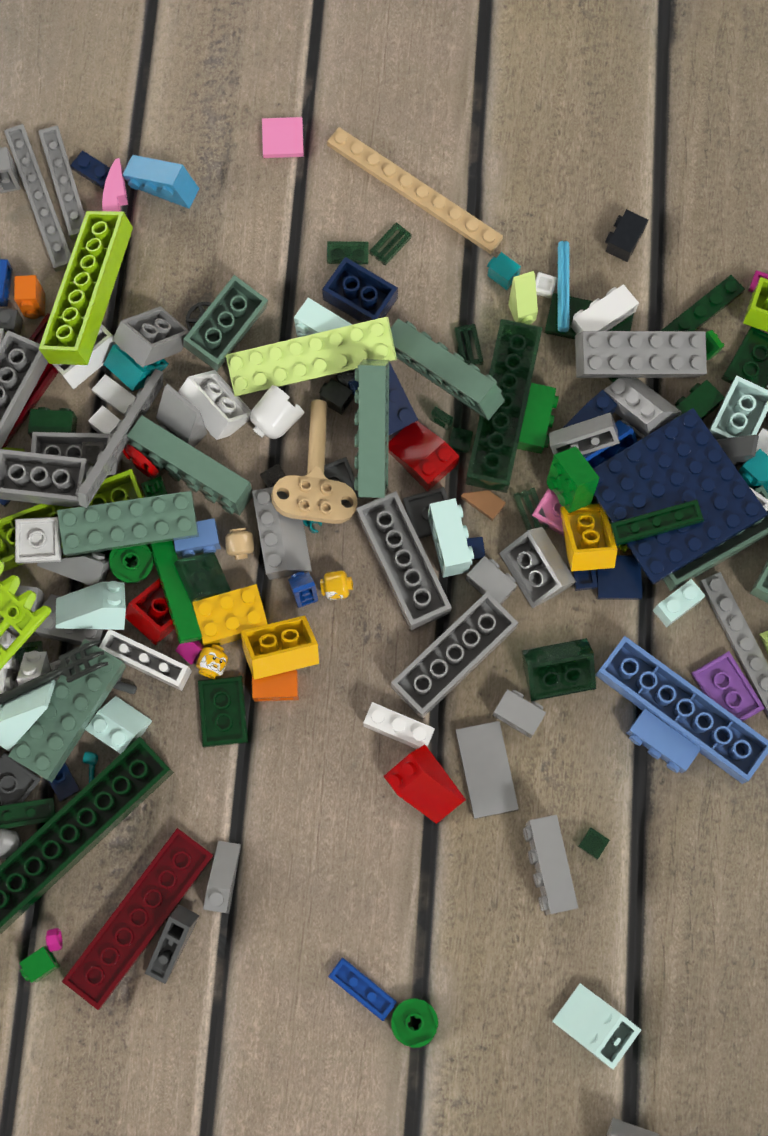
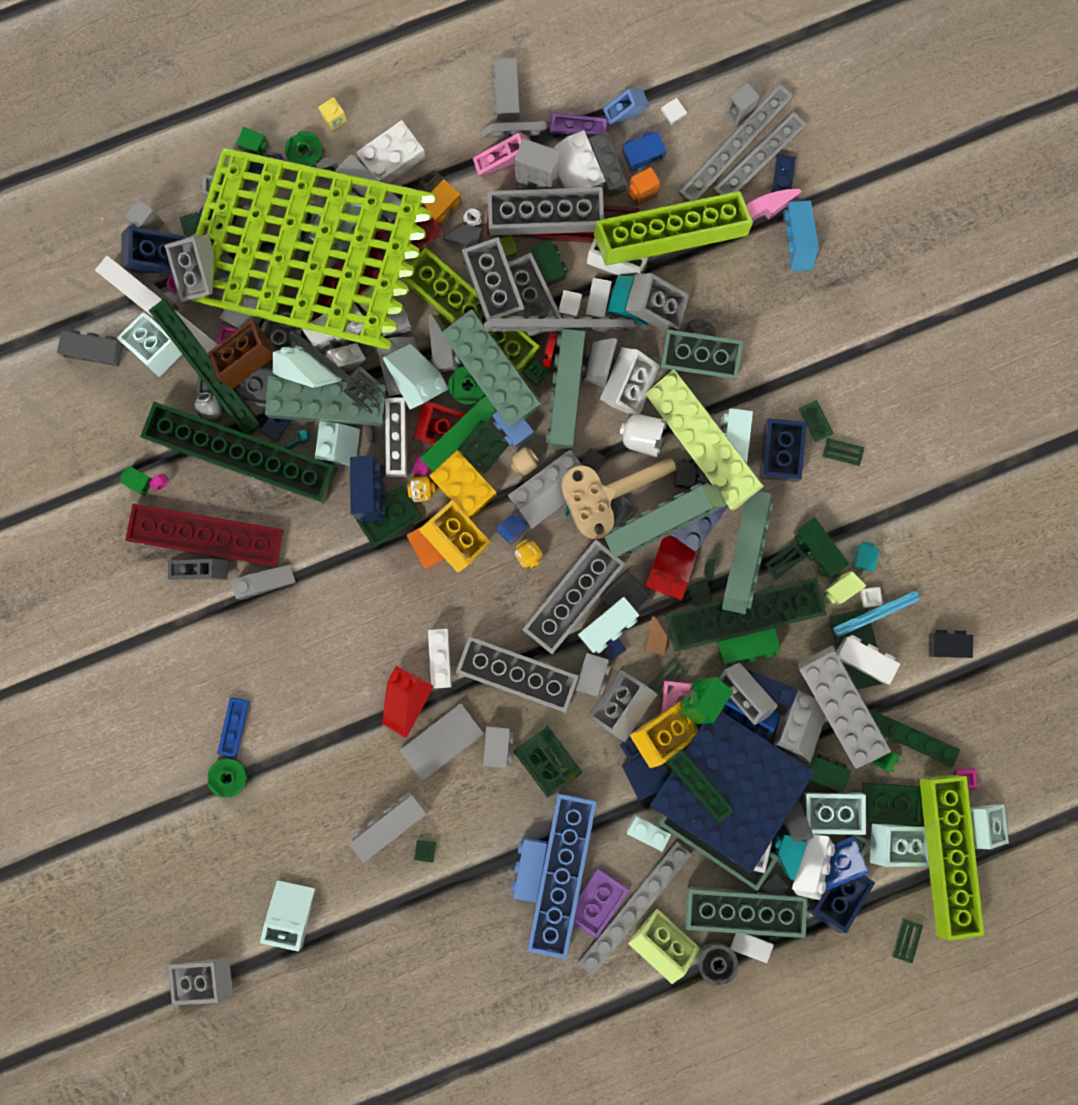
camera: 65 degrees right, 10 degrees up
(37, 540) = (445, 305): white tile -> none
(183, 713) = (367, 489): none -> dark blue brick
(282, 137) = (893, 314): bright pink tile -> none
(415, 190) = (902, 448): tan plate -> none
(473, 306) = (820, 548): none -> dark green brick

